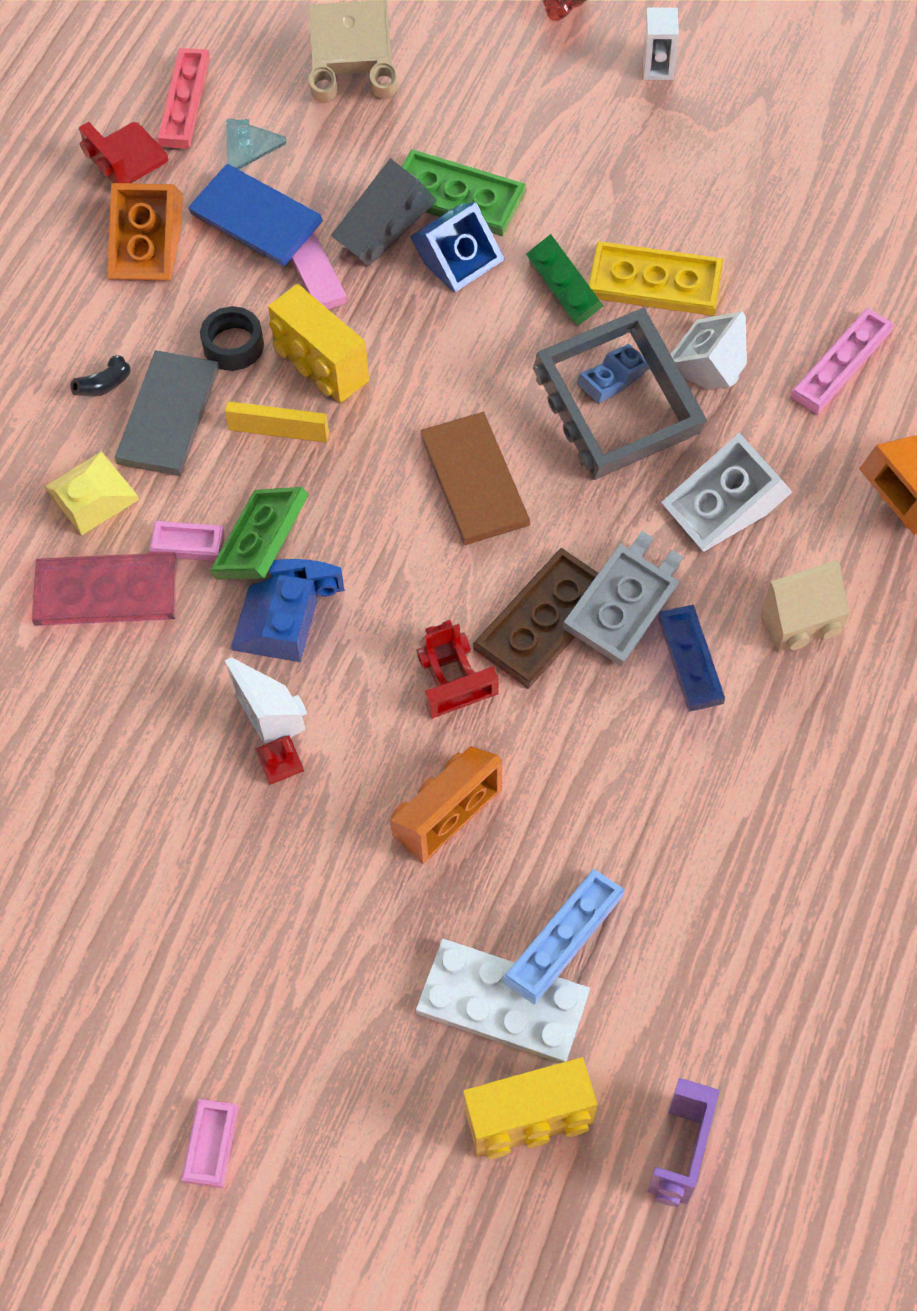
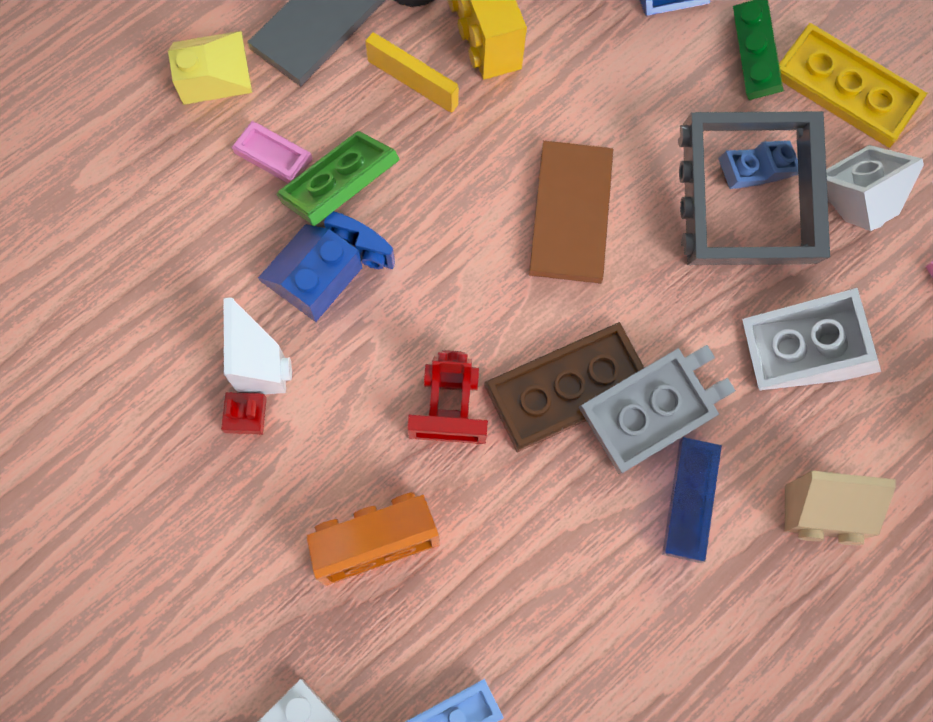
camera: 20 degrees right, 10 degrees up
(104, 589) = (174, 166): clear pink tile -> none

